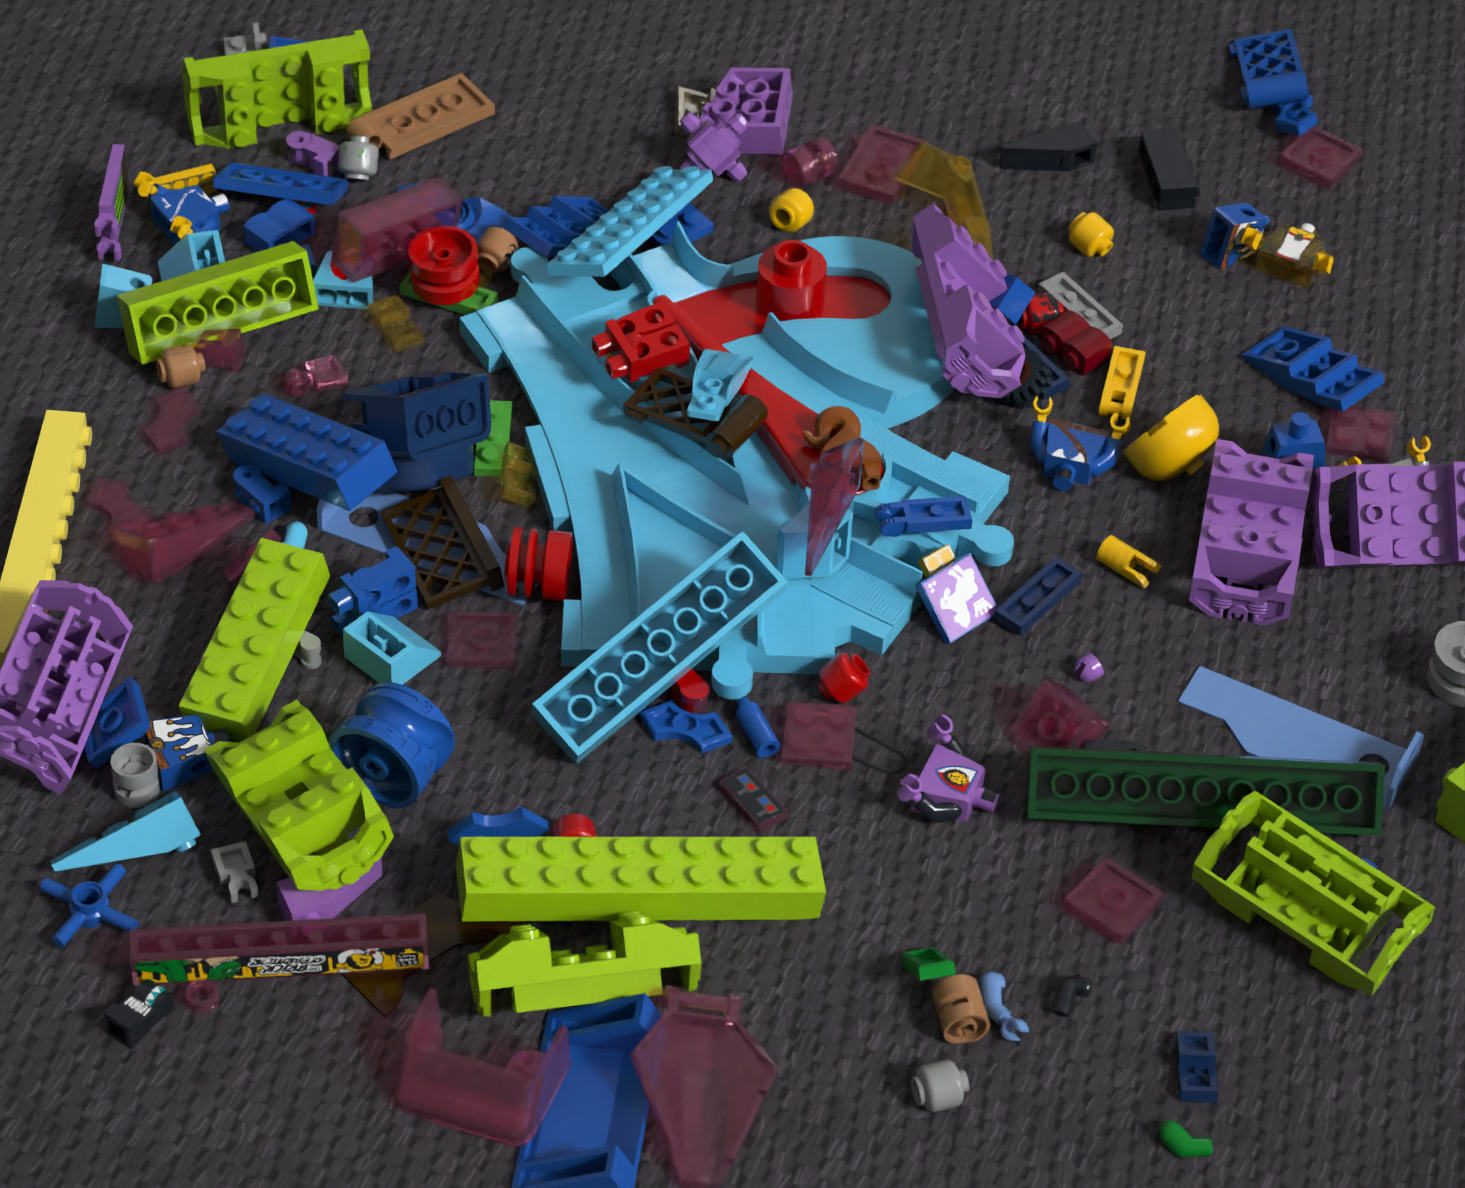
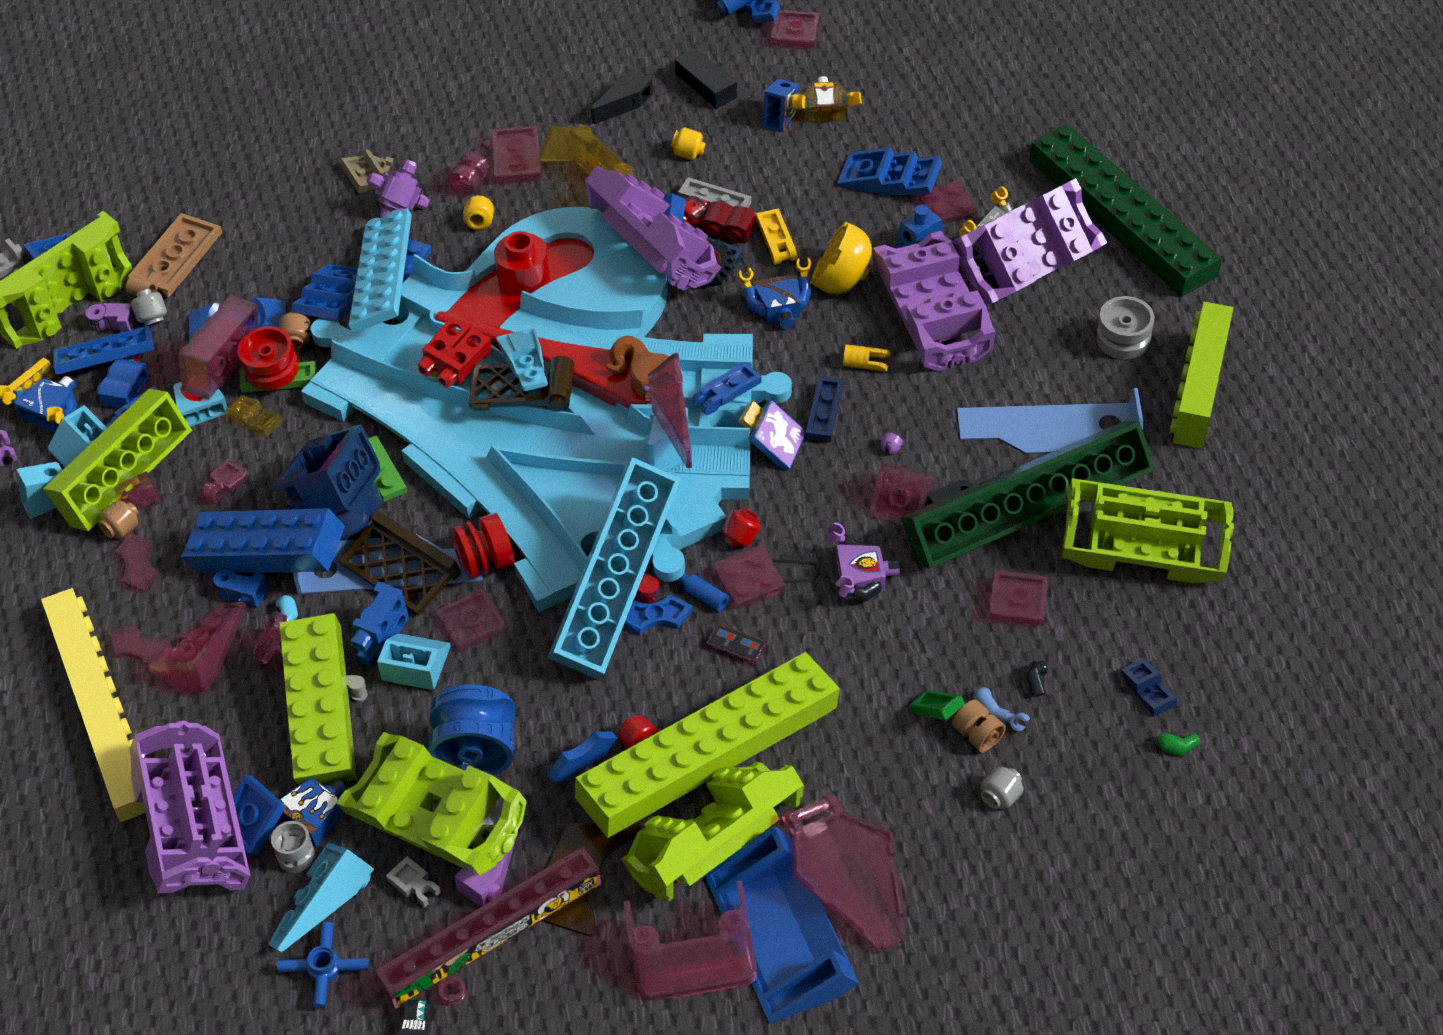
camera: 25 degrees left, 5 degrees up
(518, 475) = (417, 487): clear yellow slope -> none
(763, 99) = (404, 141): medium lavender wedge -> none

